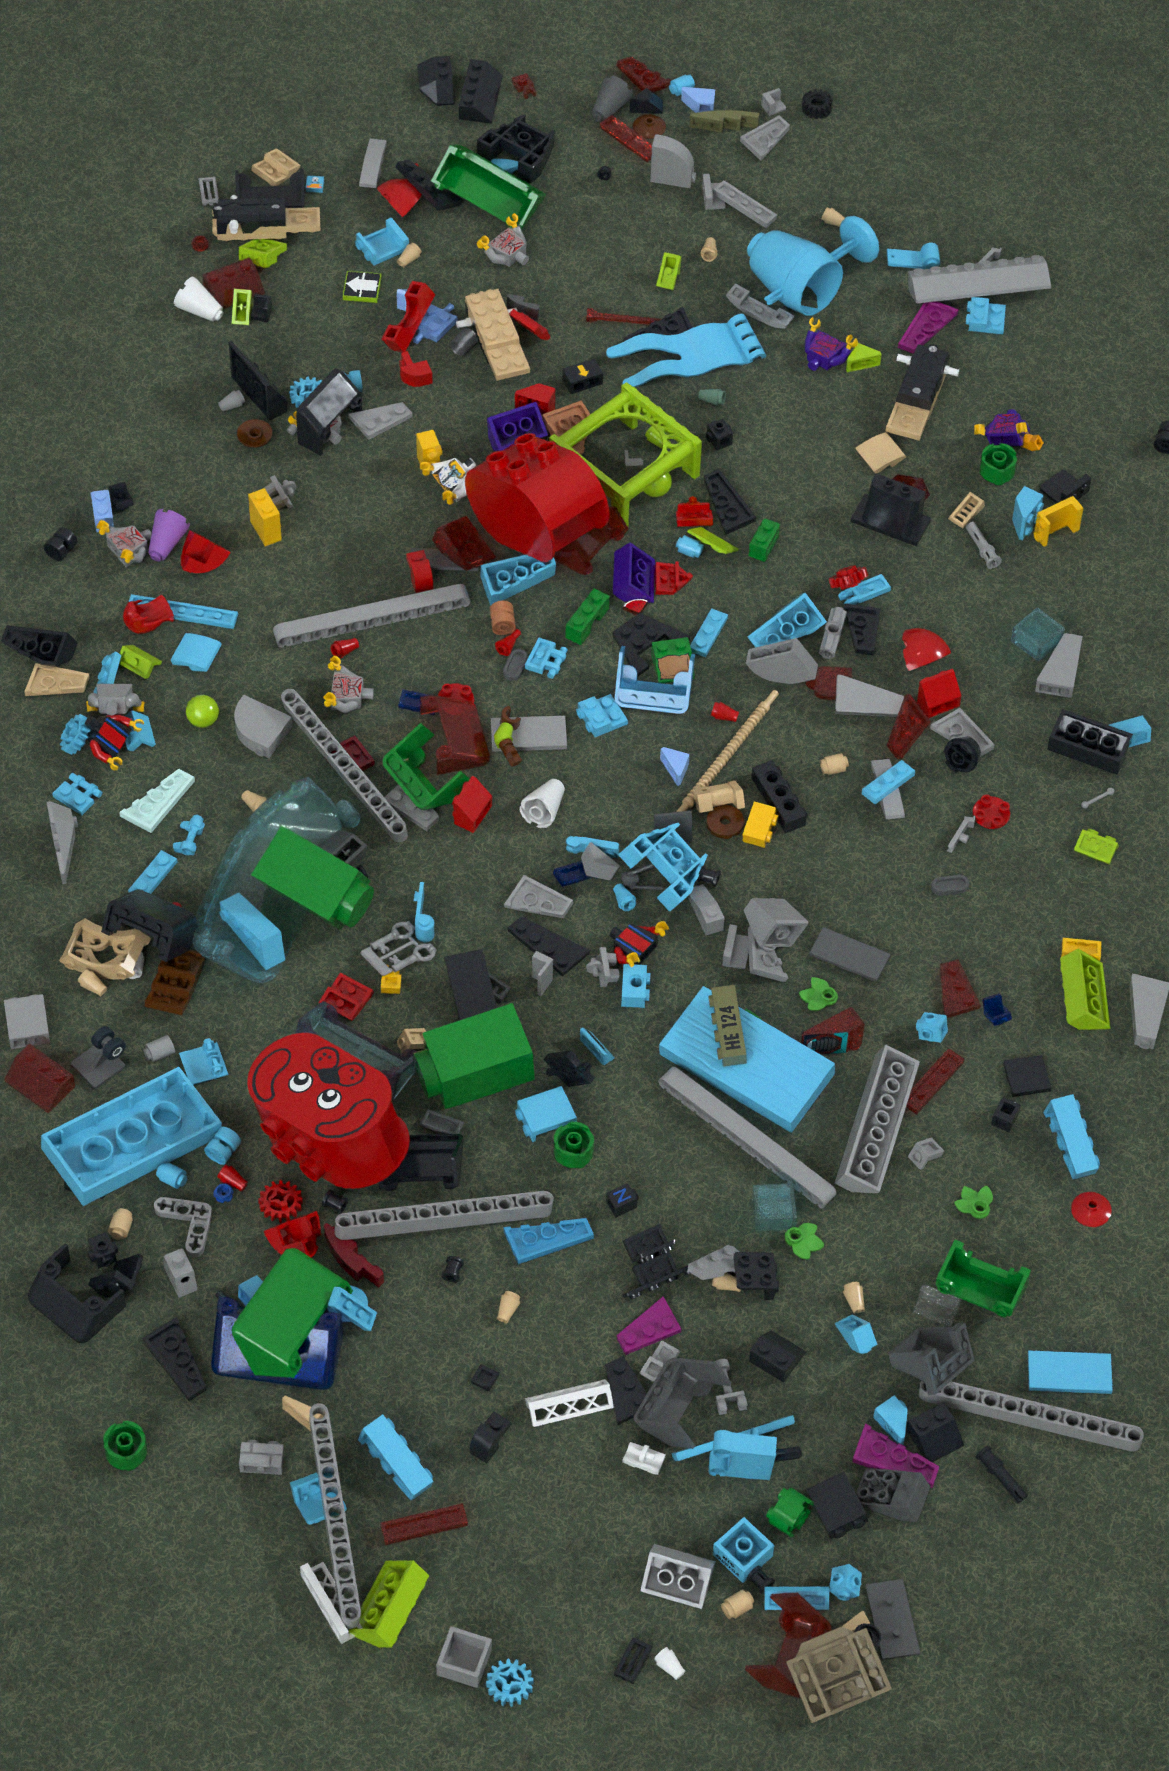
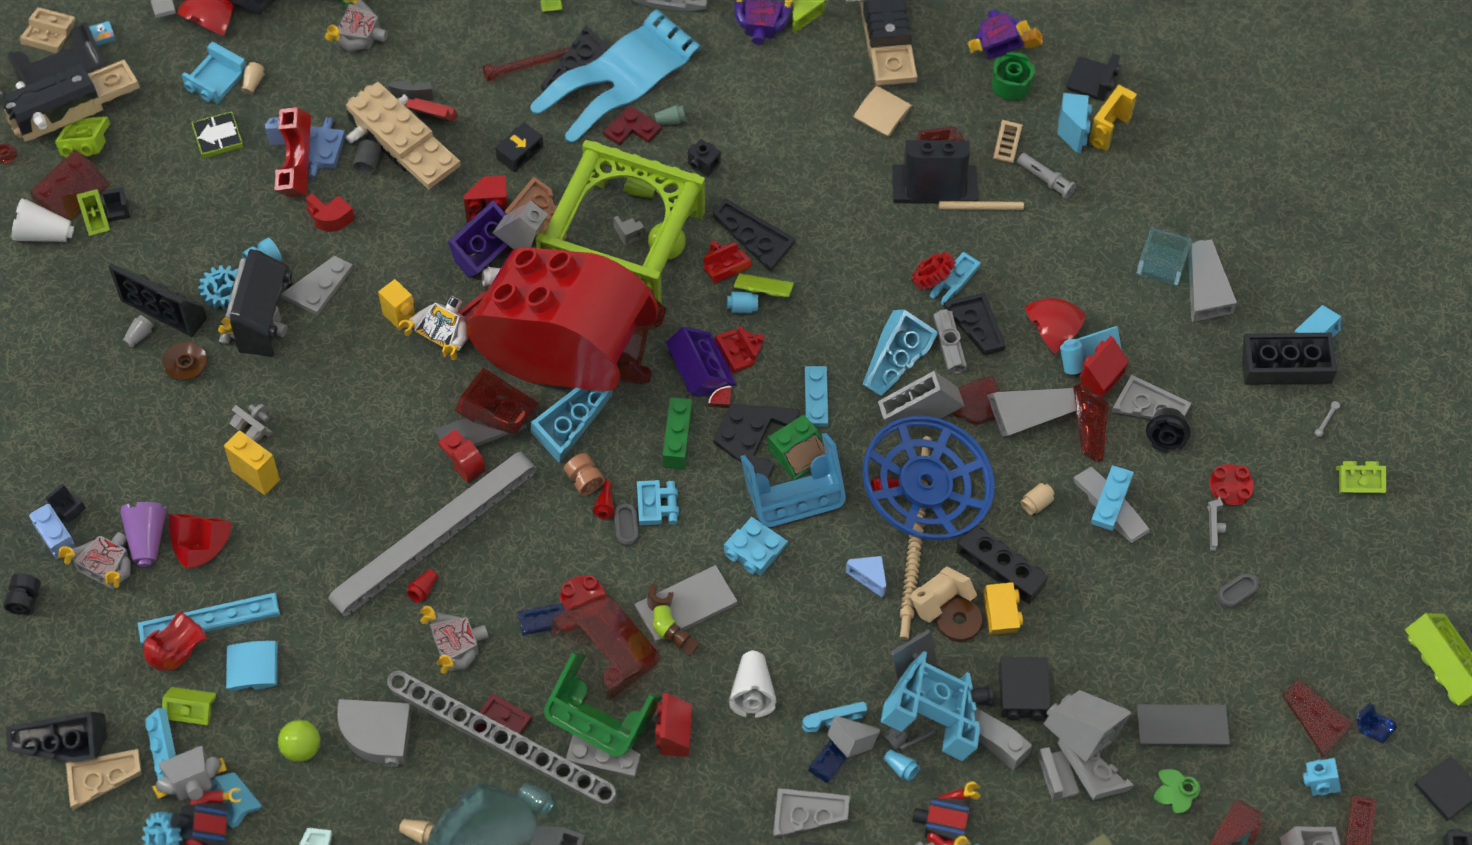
camera: 25 degrees left, 5 degrees up
(546, 423) = (521, 226): none -> light grey slope
(678, 390) = (631, 122): none -> dark red plate
(744, 881) = (1024, 688): none -> black brick
(759, 708) = (933, 470): none -> blue dish
(764, 540) = (818, 262): green brick -> none
(920, 549) = (960, 205): none -> tan bar
(922, 670) = (1077, 350): none -> medium azure door
(1090, 947) = (1414, 607): yellow plate -> none

